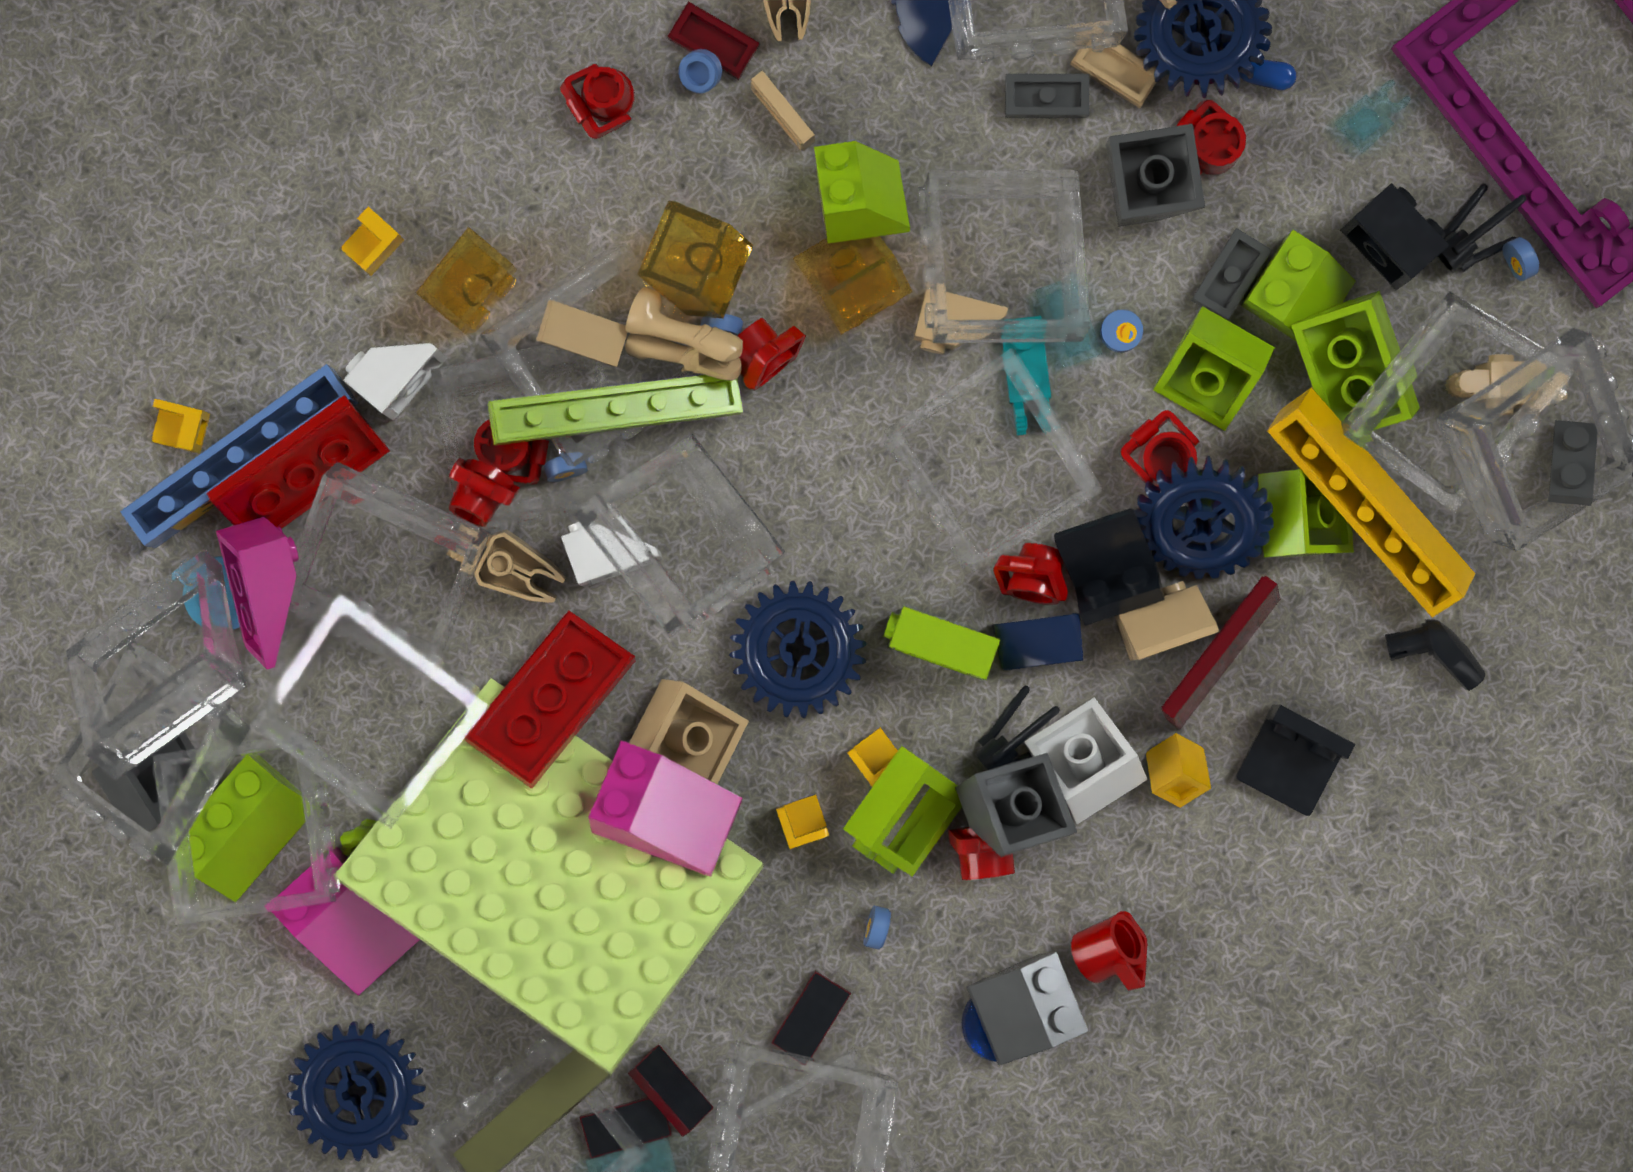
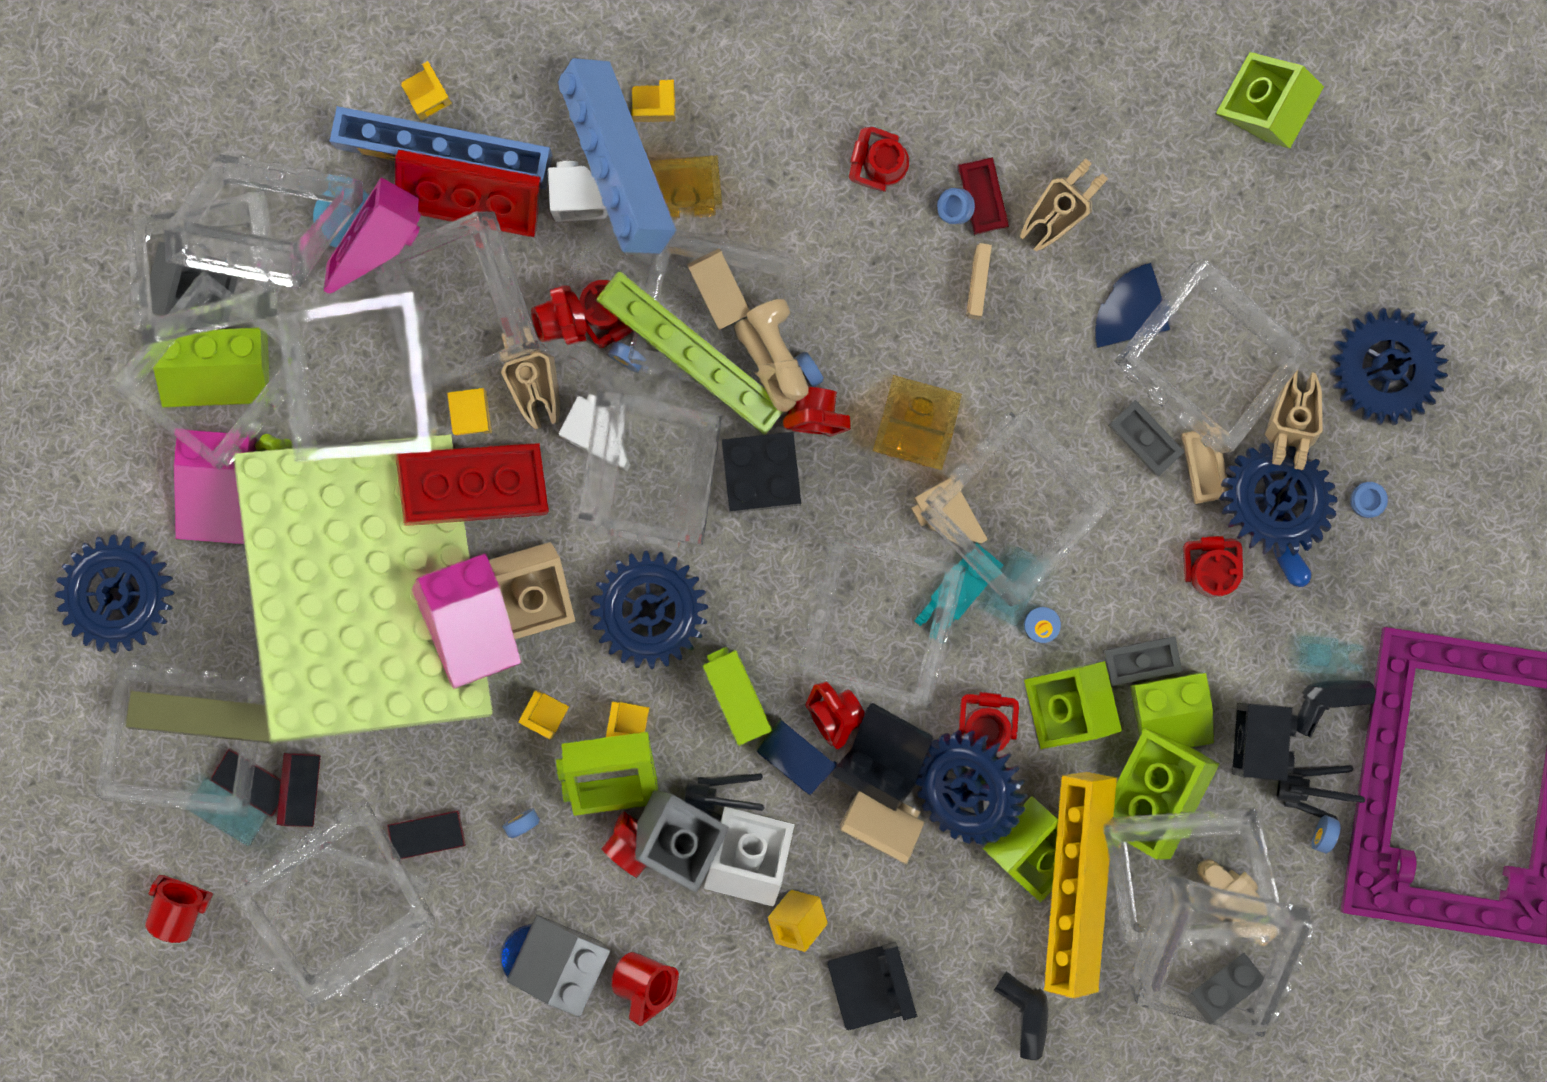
camera: 45 degrees right, 0 degrees up
(388, 313) = (616, 156): none -> medium blue brick
(486, 644) = (469, 412): none -> yellow panel
(695, 261) = (831, 316): clear yellow slope -> none
(771, 445) = (761, 472): none -> black brick
(860, 192) = (973, 378): lime slope -> none
(1154, 174) = (1159, 553): dark grey slope -> none
(1221, 652) = (896, 878): dark red tile -> none
(1409, 142) = (1331, 695): none -> black arm

